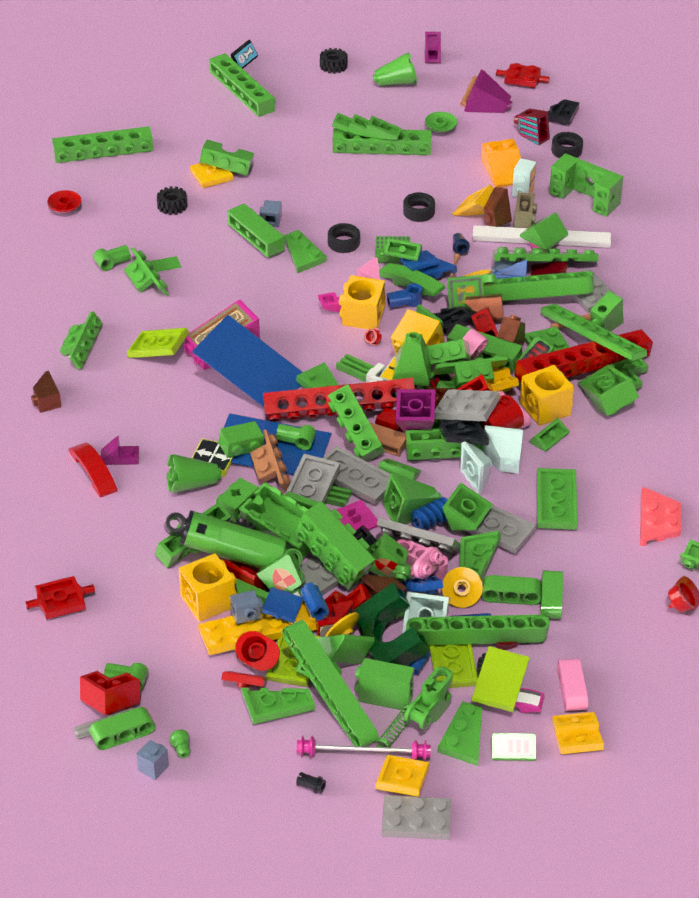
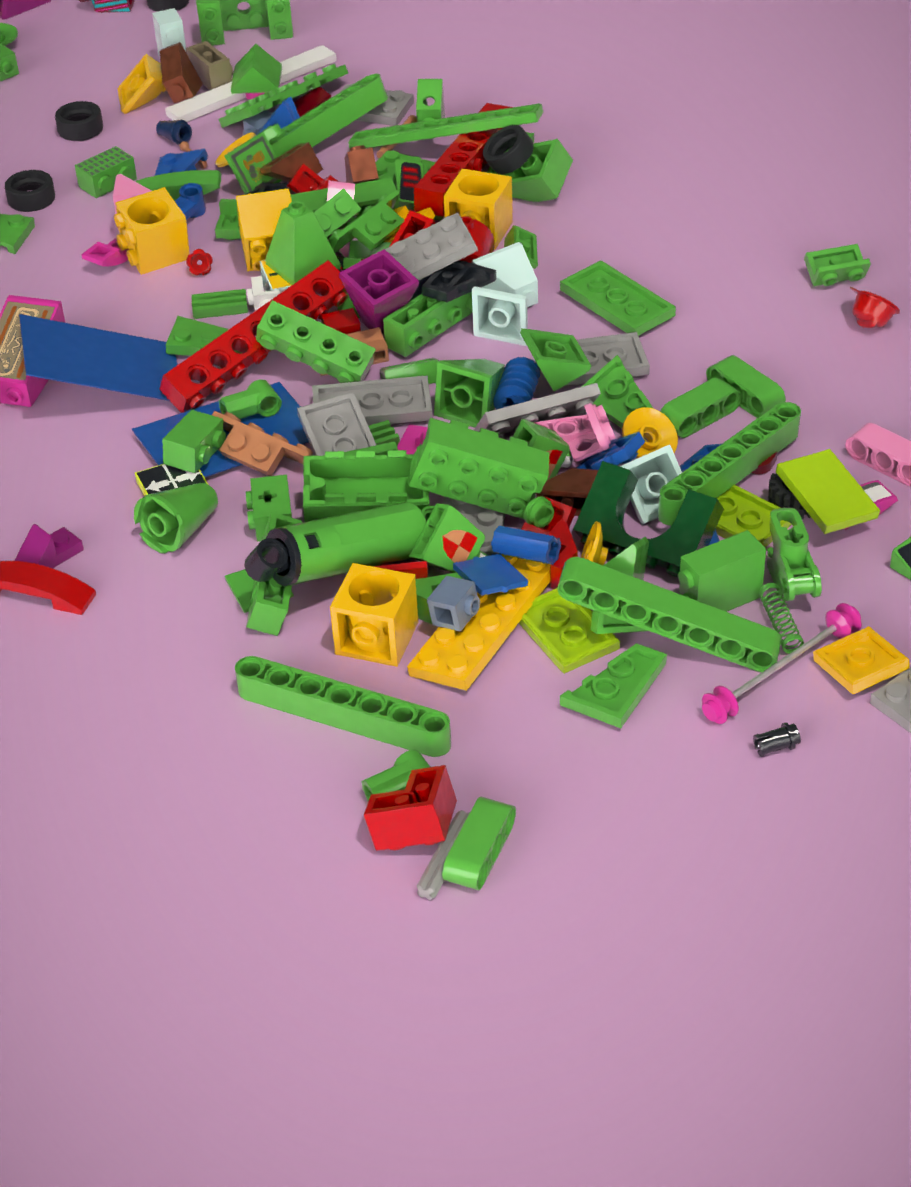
camera: 40 degrees left, 0 degrees up
(60, 597) = (190, 753): red plate -> none
(146, 623) = (344, 706): none -> bright green beam
(152, 759) = (570, 848): sand blue brick -> none
(180, 741) = (570, 807): bright green piece -> none
(243, 679) = (547, 686): plate -> none
(257, 650) = (529, 641): red piece -> none
(347, 589) = (539, 512): none -> bright green plate
(402, 573) = (576, 457): bright green plate -> none
(403, 249) = (128, 159): bright green slope -> none
(425, 260) = (155, 164): blue piece -> none
(463, 734) = (855, 577): bright green wing -> none
(500, 161) = (117, 38): light orange slope -> none
(604, 368) = (520, 151): none -> black tyre
(658, 517) = (734, 257): coral wing -> none

